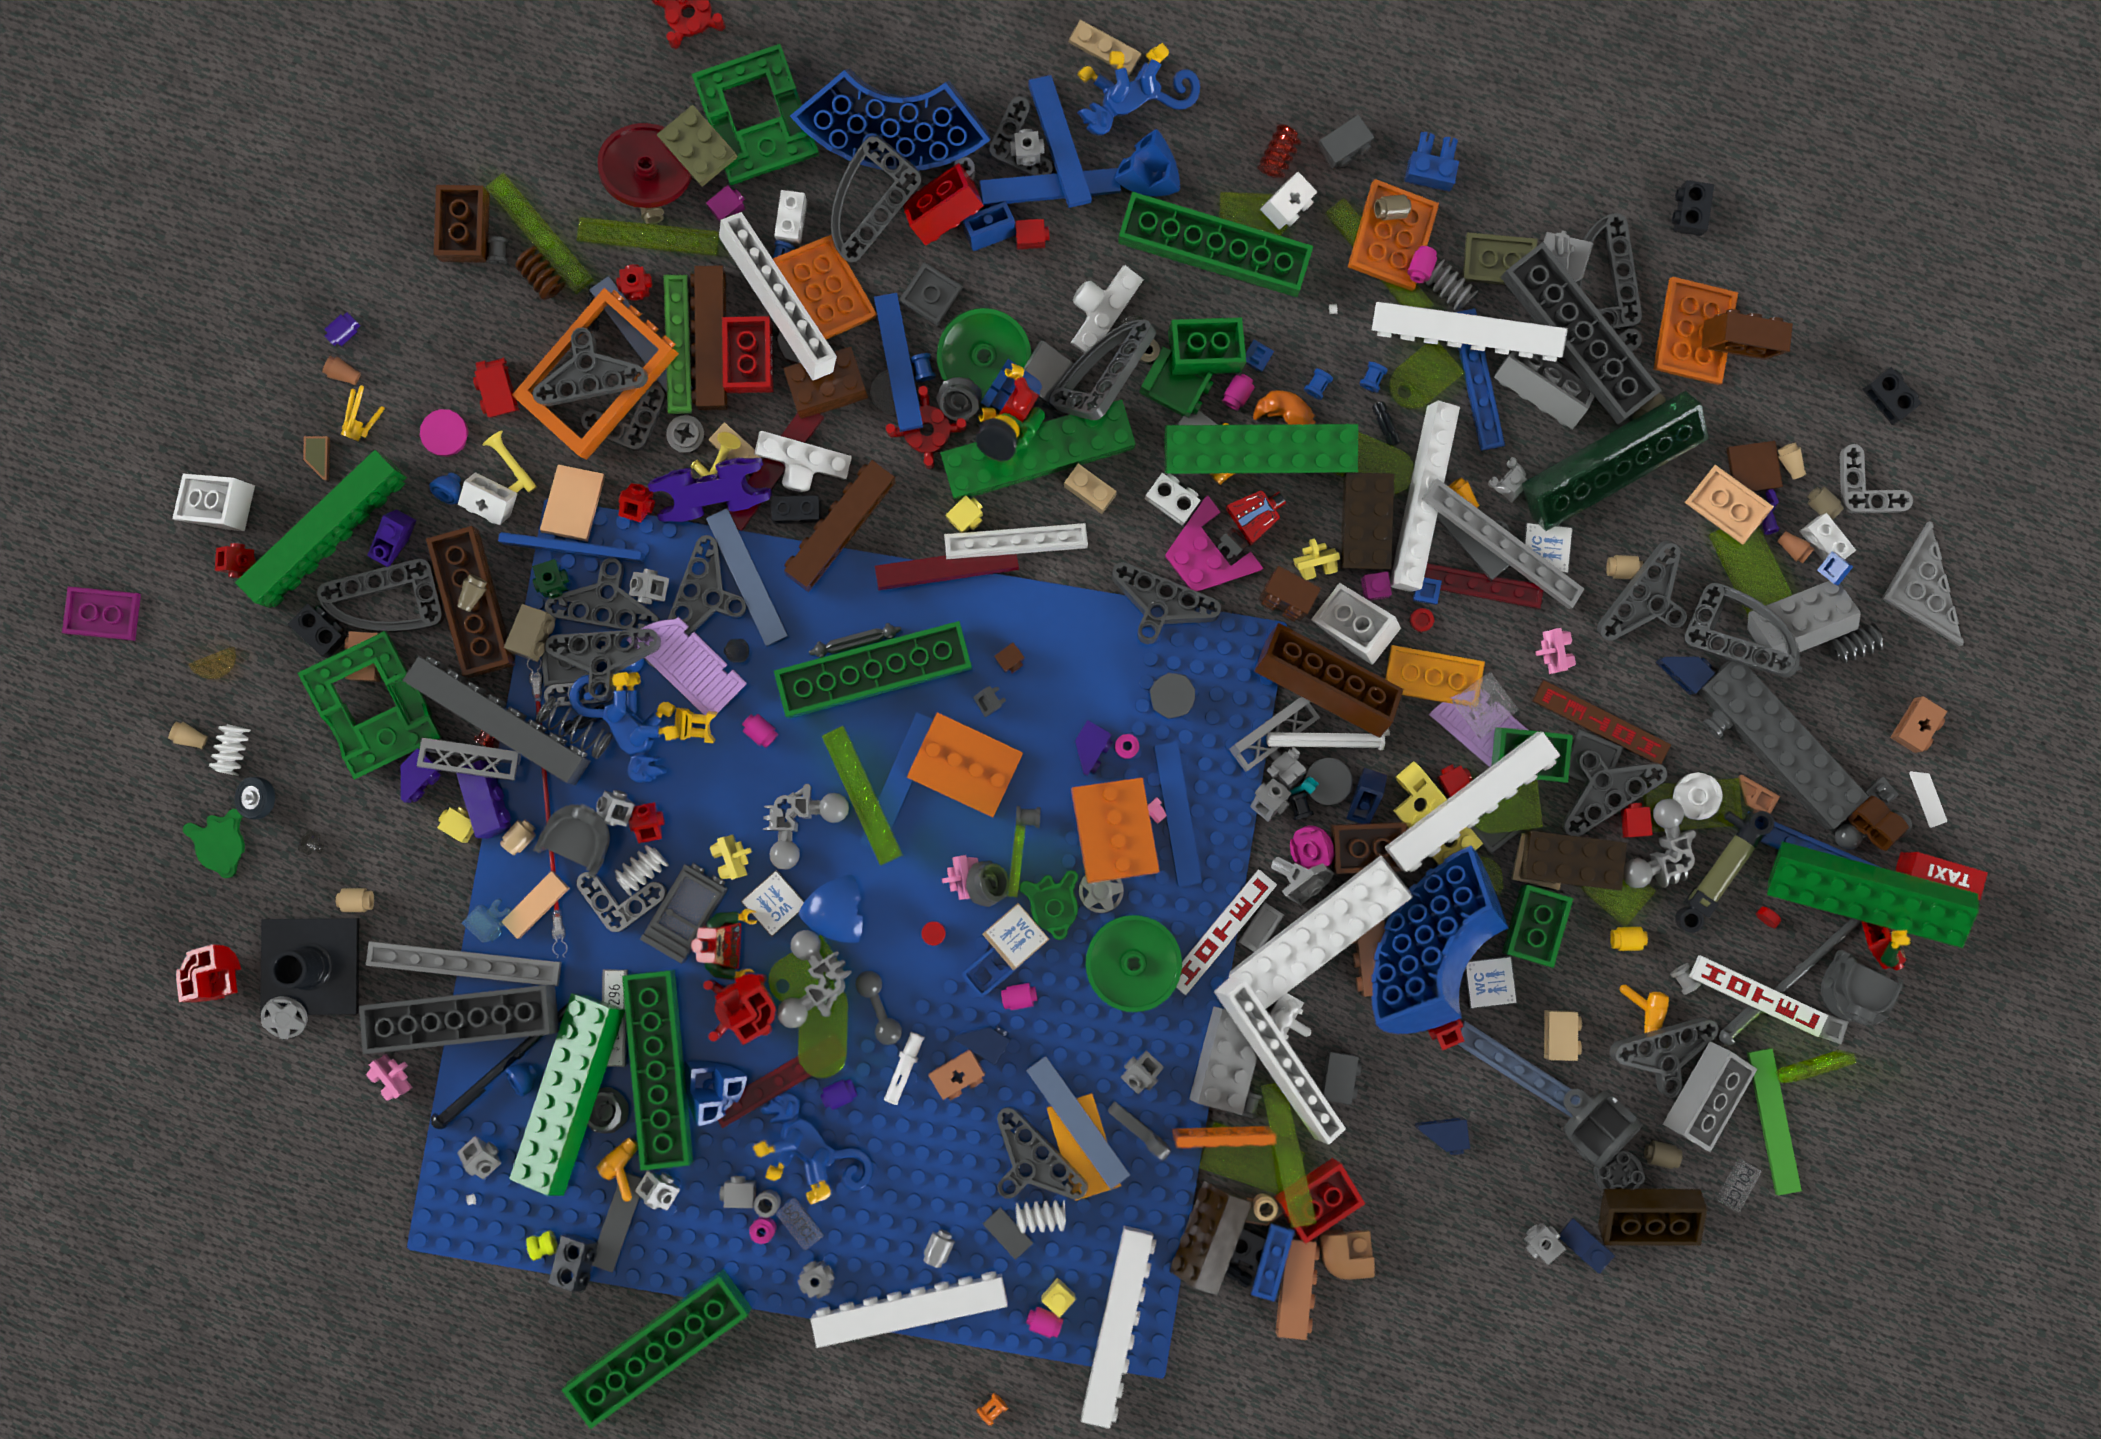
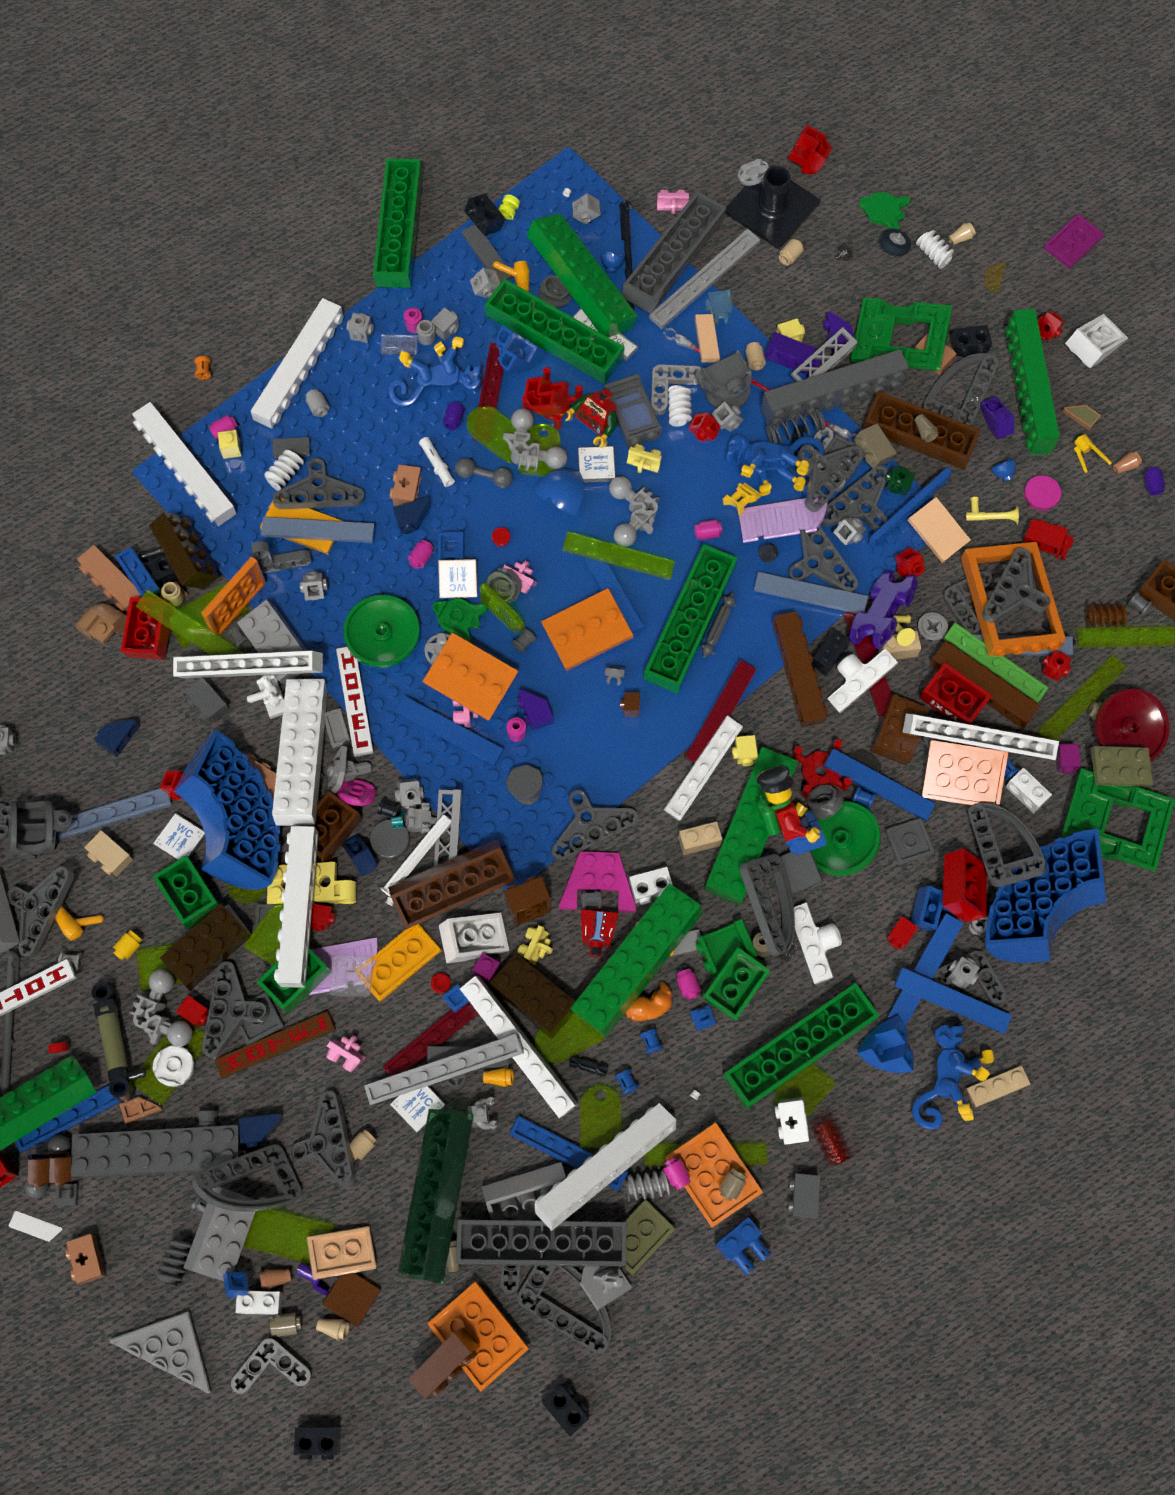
camera: 130 degrees right, 15 degrees down
(487, 498) = (979, 484): white brick -> none

